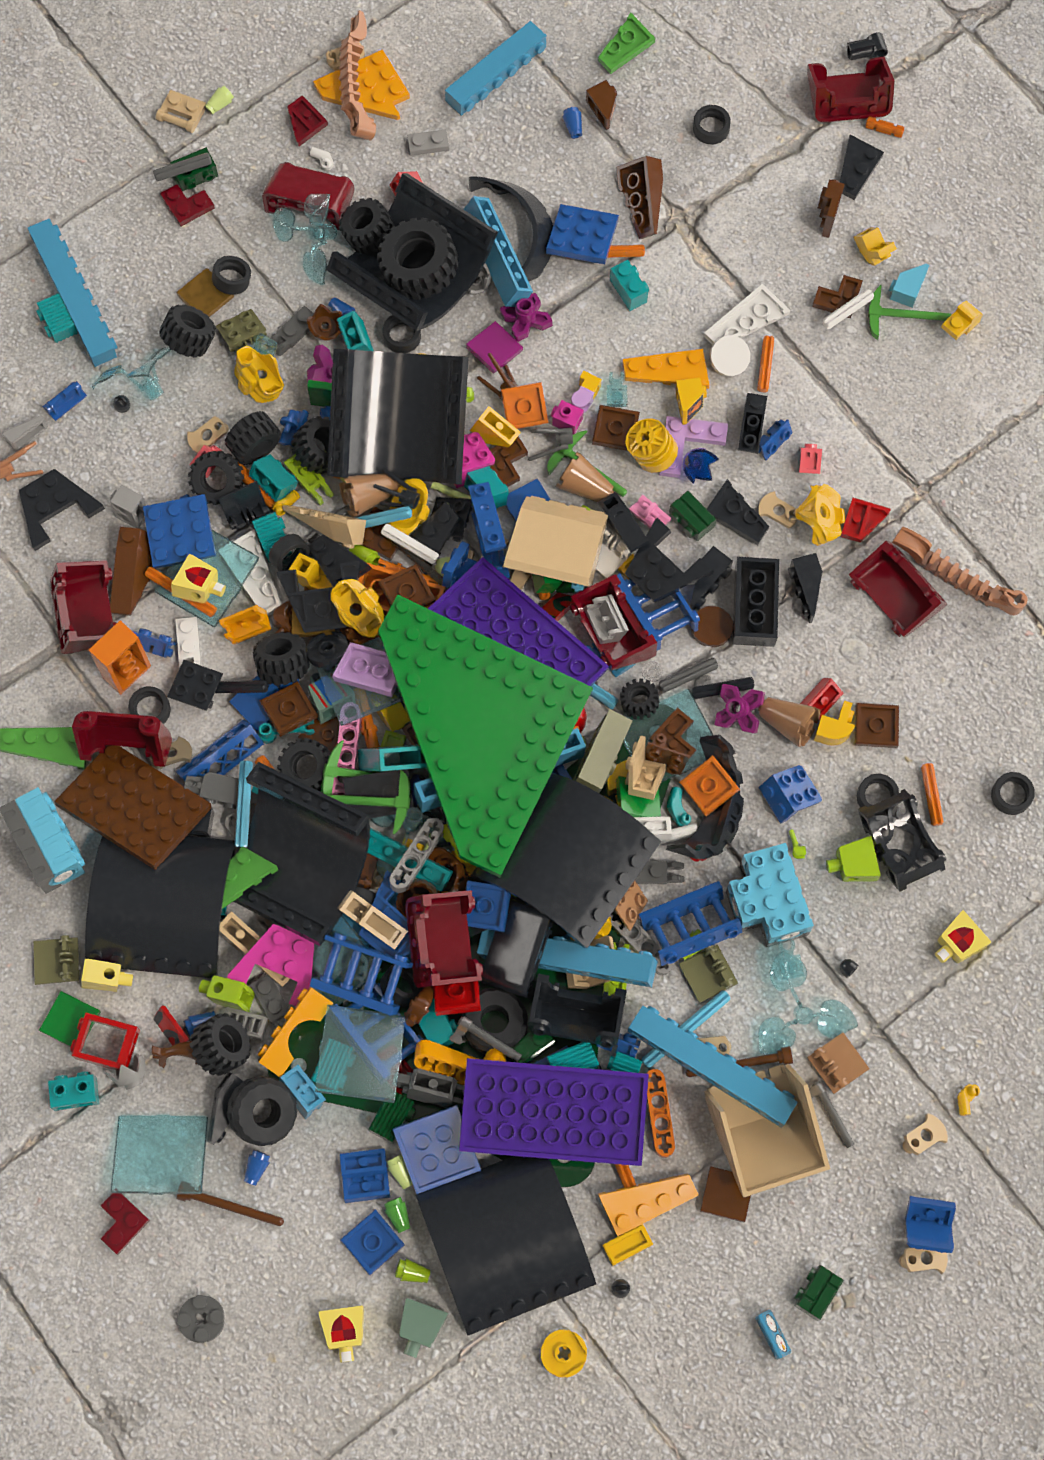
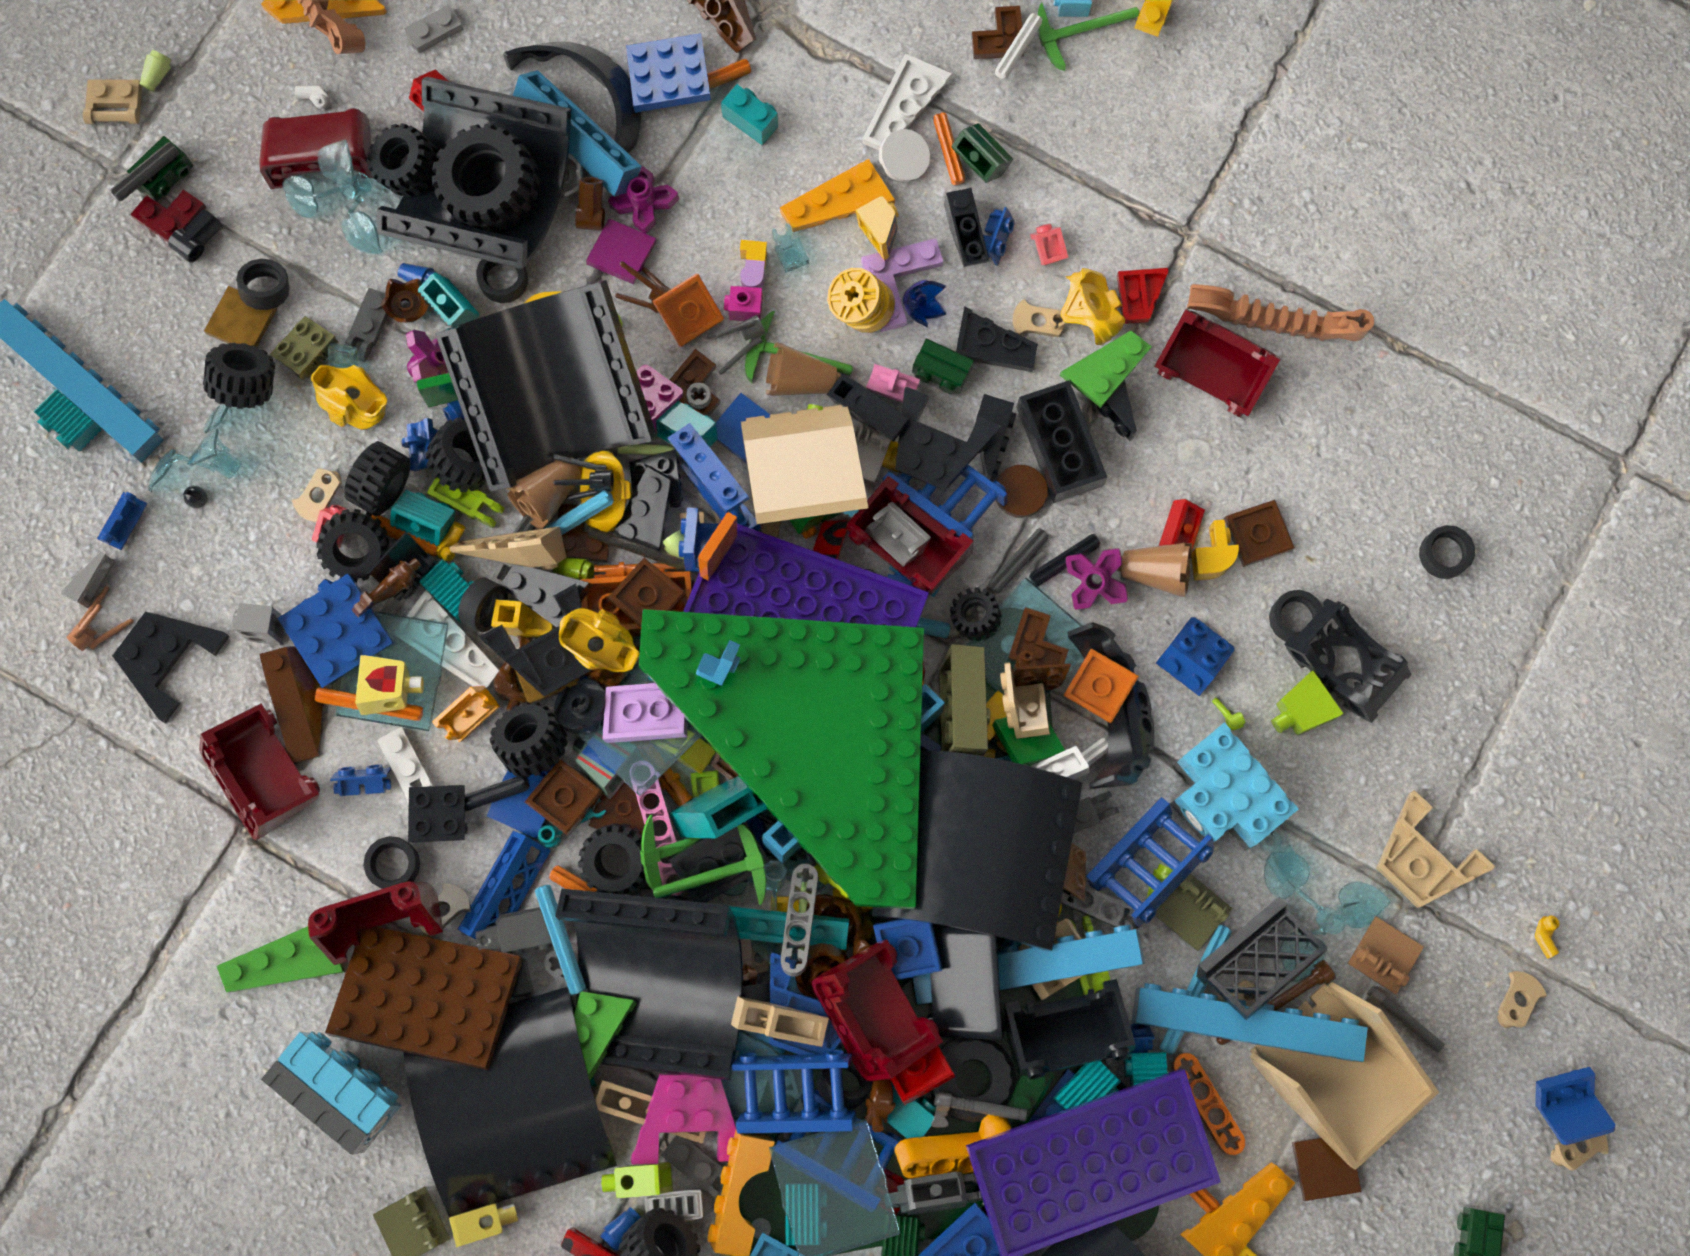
camera: 25 degrees left, 5 degrees up
(120, 657) = (330, 821): orange brick -> none
(194, 226) = (190, 241): none -> black piece
(236, 513) = (397, 580): none -> reddish brown animal
(305, 120) = (271, 56): dark red wing -> none
(409, 543) = (624, 534): white axle -> none
(431, 654) = (717, 669): none -> dark azure bracket
(469, 572) = (717, 546): none -> orange tile
(483, 310) = (589, 211): none -> reddish brown piece
(495, 429) = (665, 352): yellow slope -> none
(502, 473) = (698, 403): none -> light grey bush
(613, 426) = (805, 294): reddish brown plate -> none
(676, 809) = (1072, 728): teal arm -> none
(731, 1008) = (1249, 937): none -> black fence
(787, 375) = (982, 153): none -> dark green brick
(812, 561) = (1107, 368): none -> bright green wing
(848, 967) = (1349, 836): black hinge -> none
(890, 1009) = (1417, 866): none -> tan wing
(932, 794) = (1356, 590): orange axle -> none
(961, 940) = (1462, 750): light yellow torso -> none

